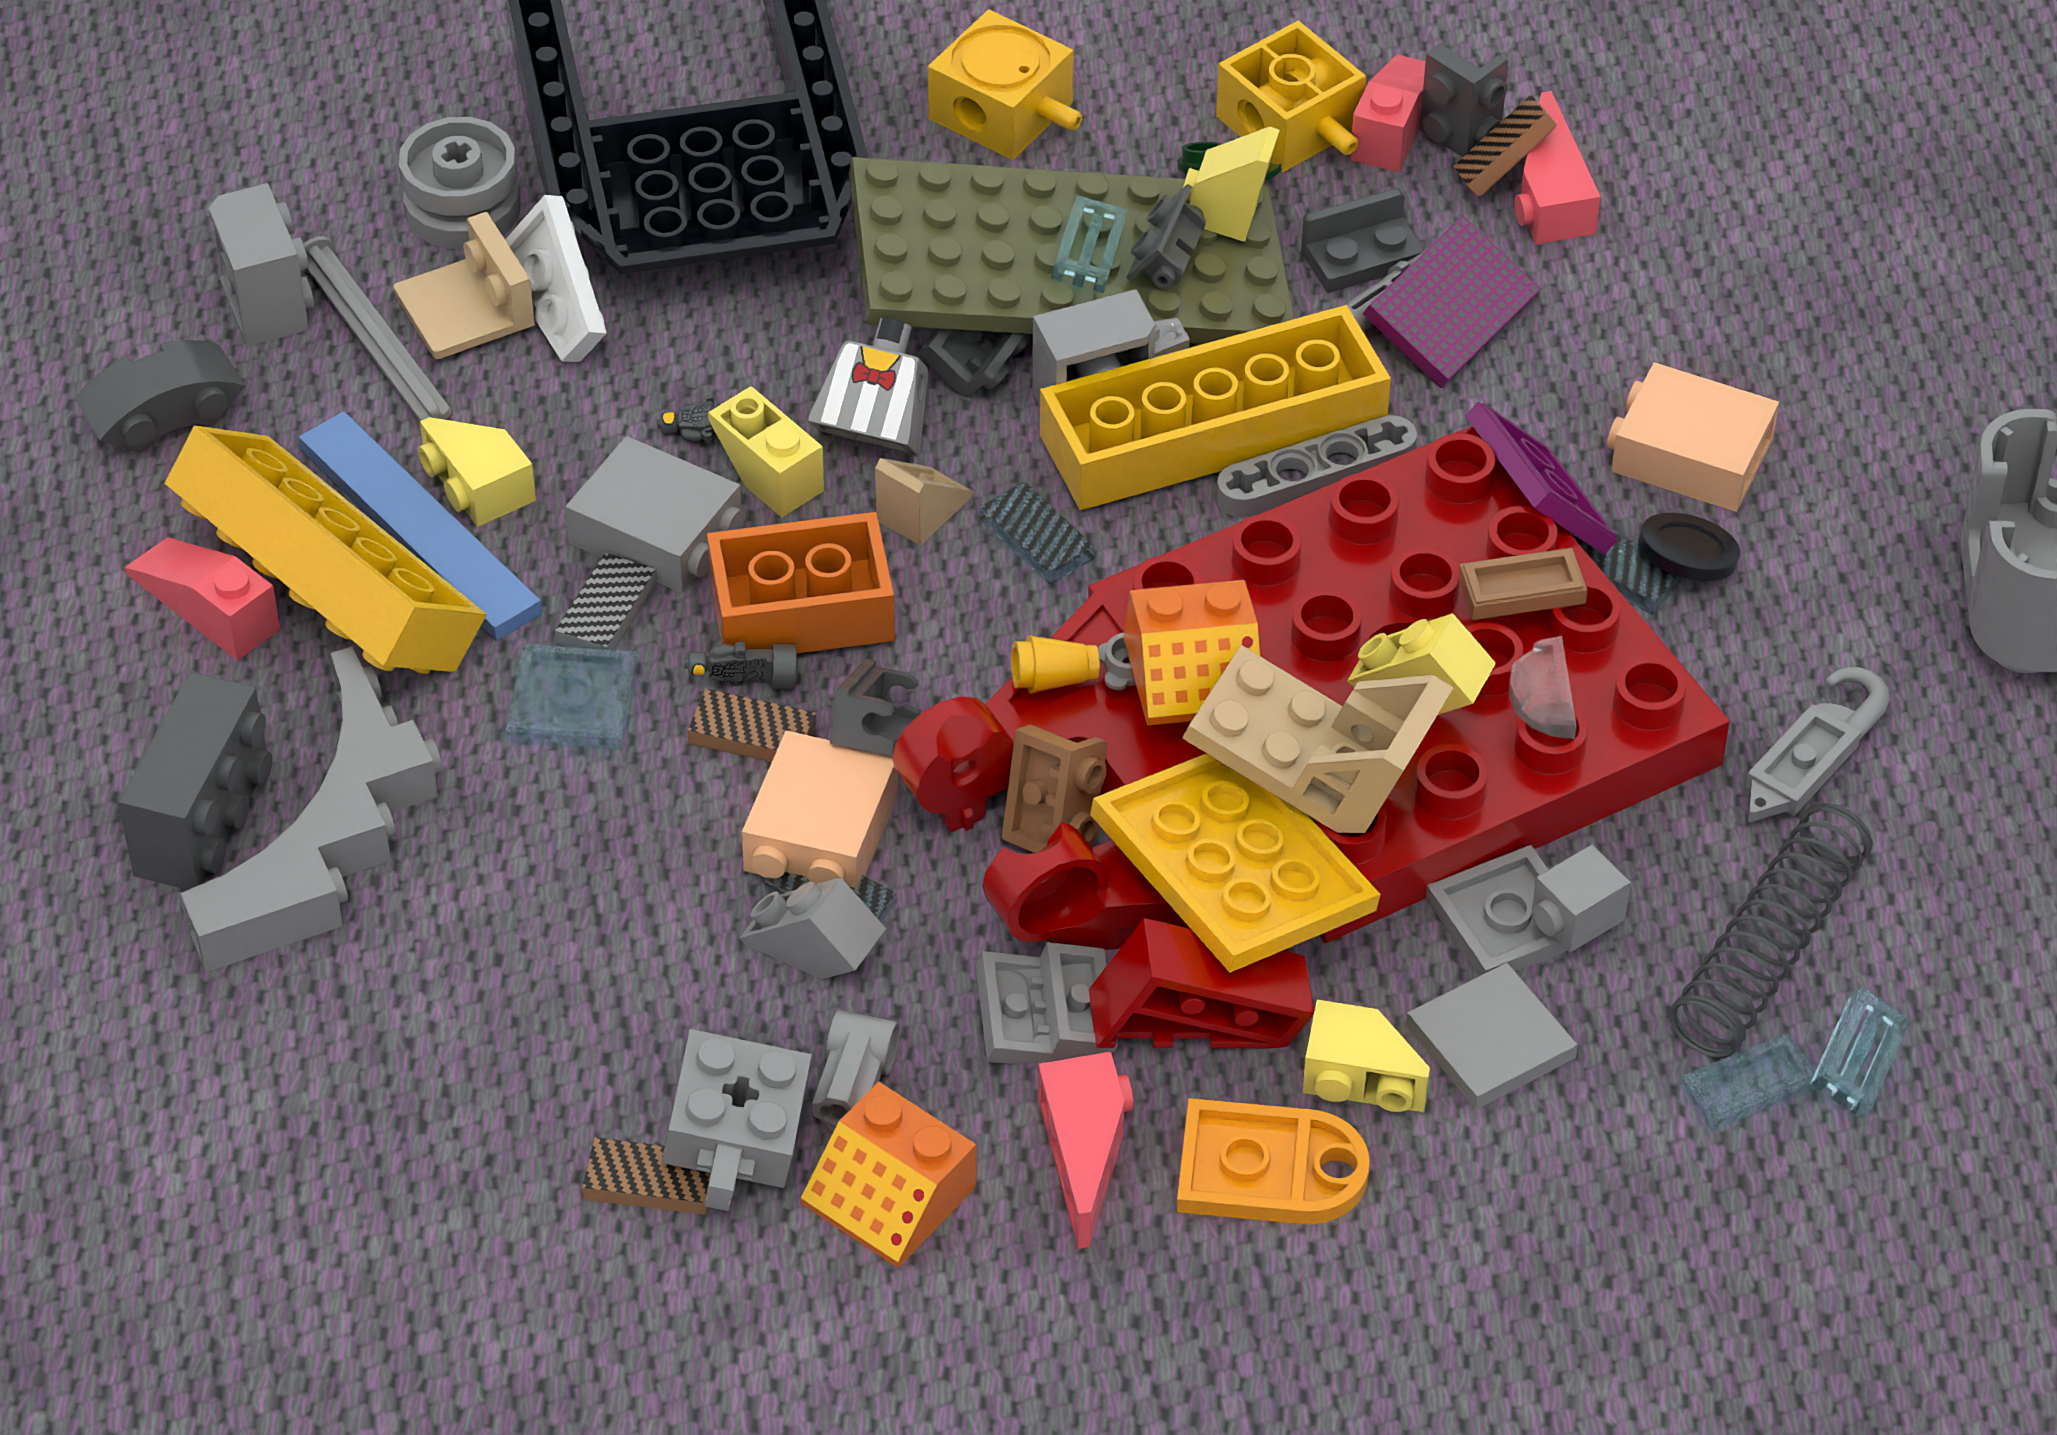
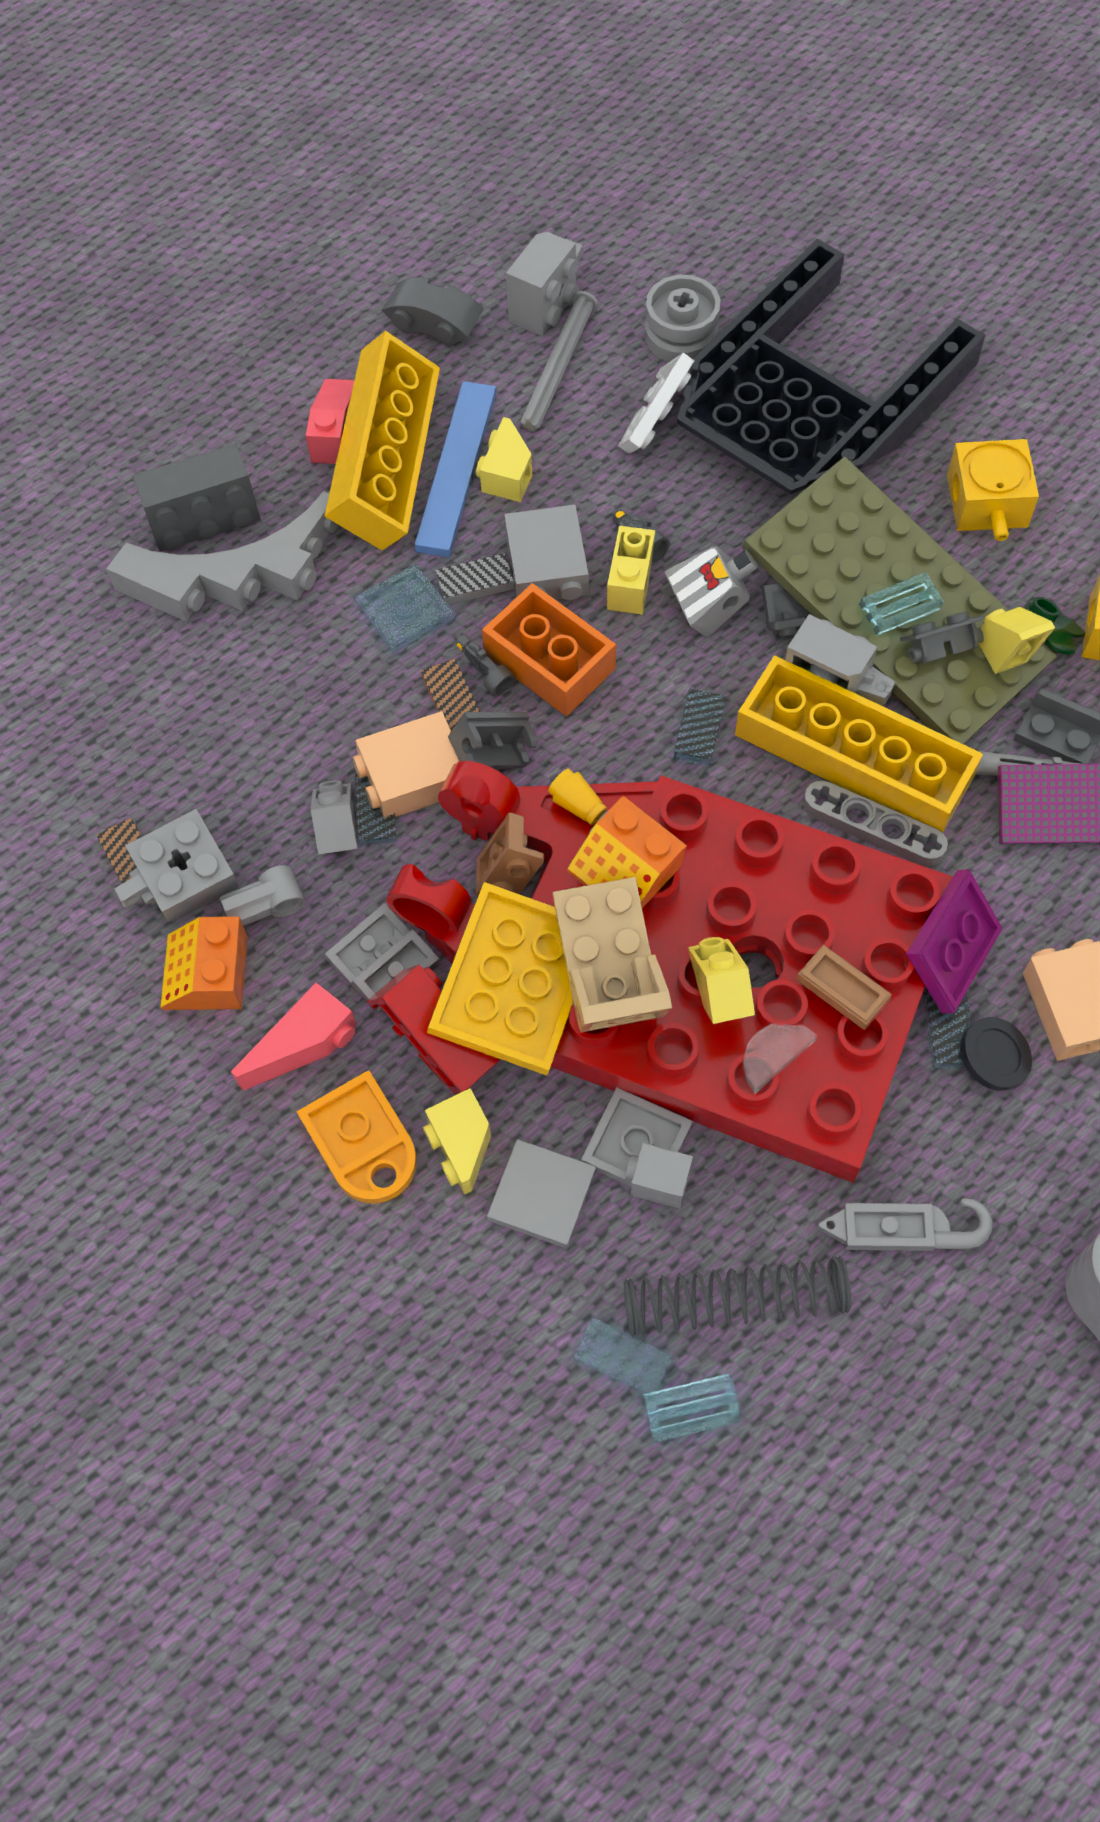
camera: 55 degrees right, 15 degrees up
(470, 298) = (616, 379): tan bracket -> none
(916, 498) = (670, 656): tan slope -> none

